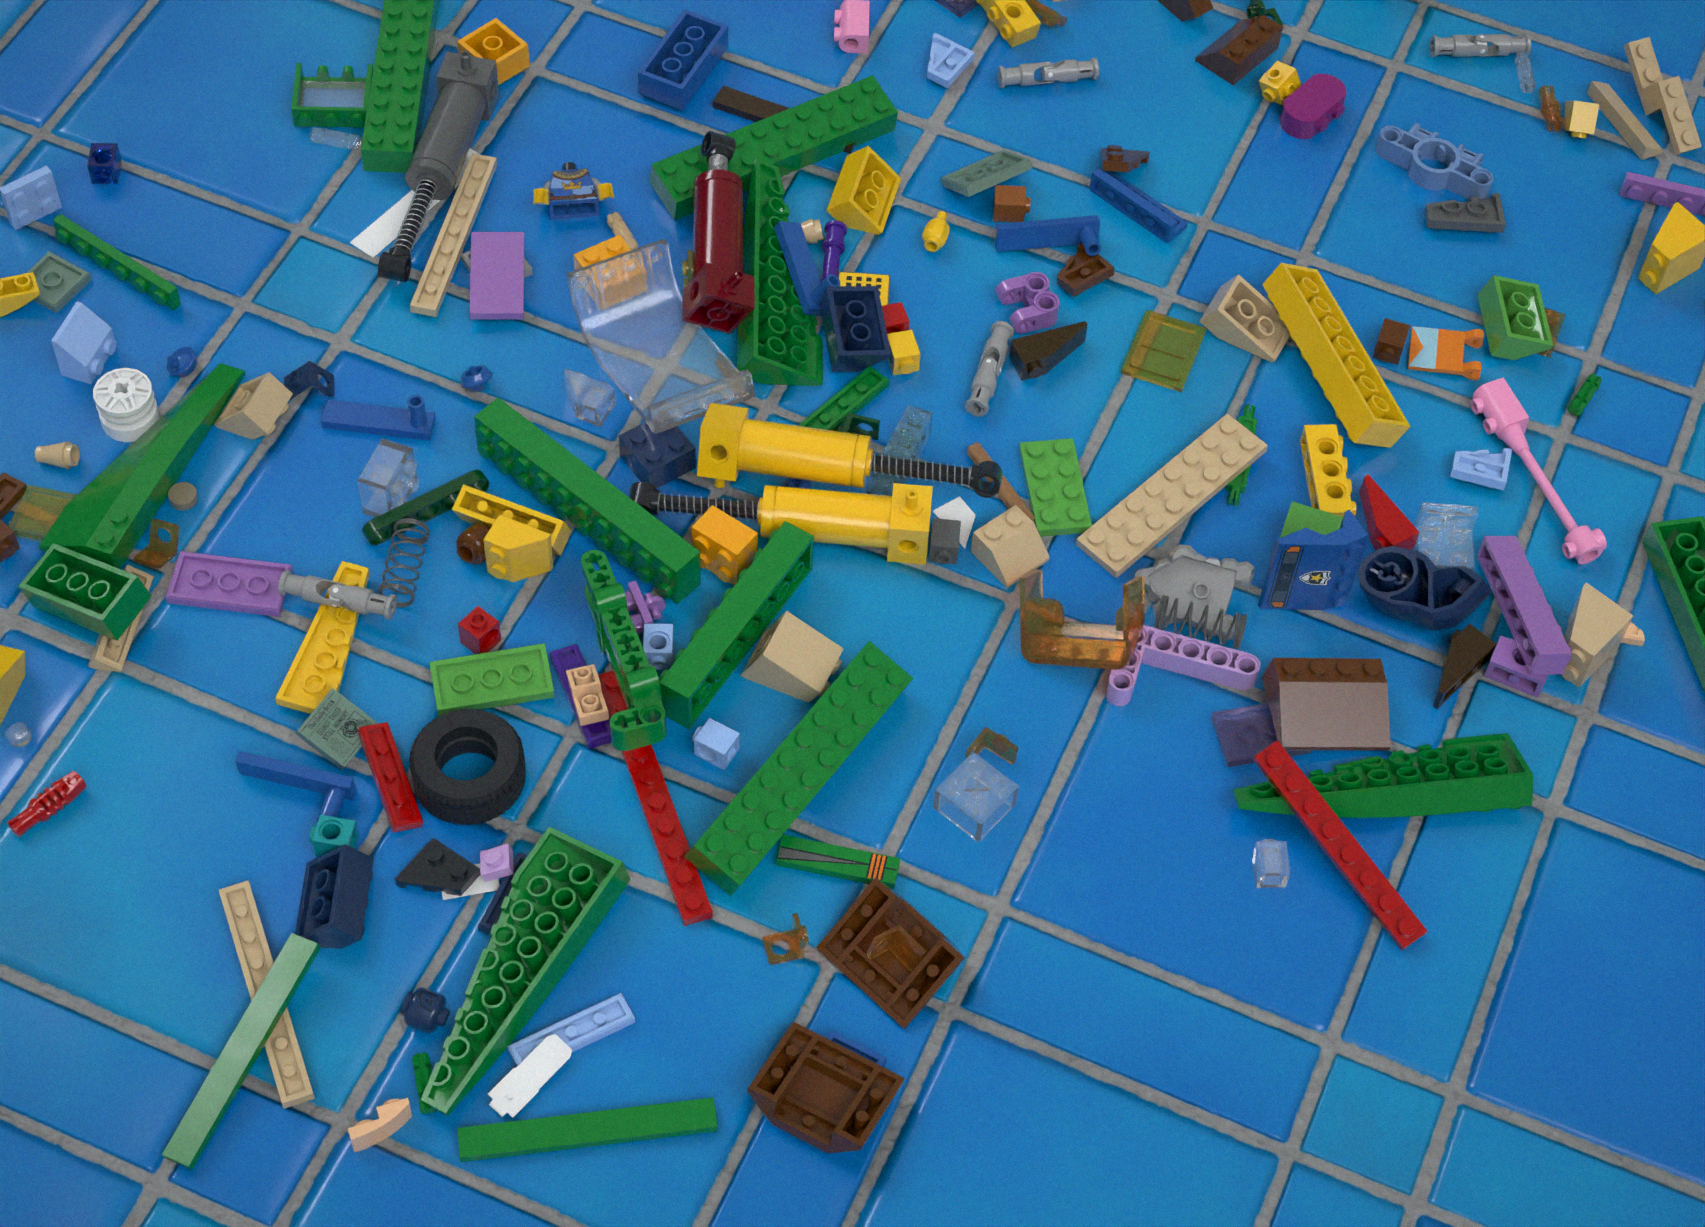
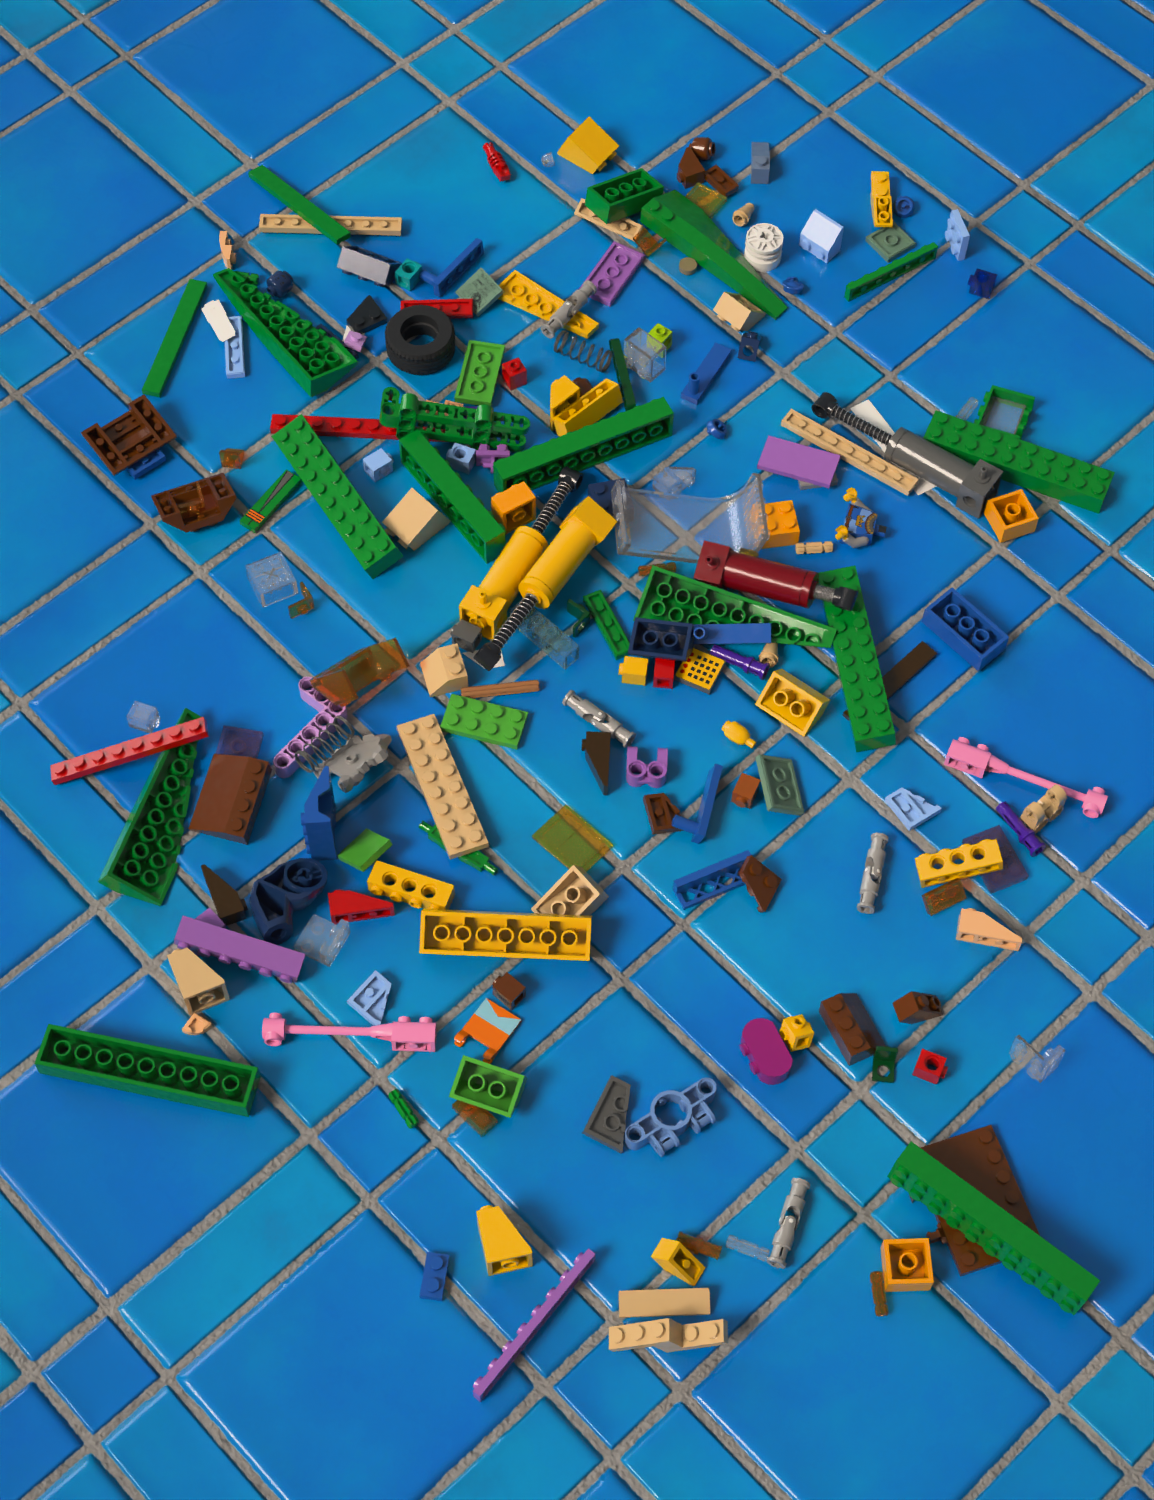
camera: 115 degrees right, 5 degrees up
(343, 480) = (662, 334): none -> lime brick

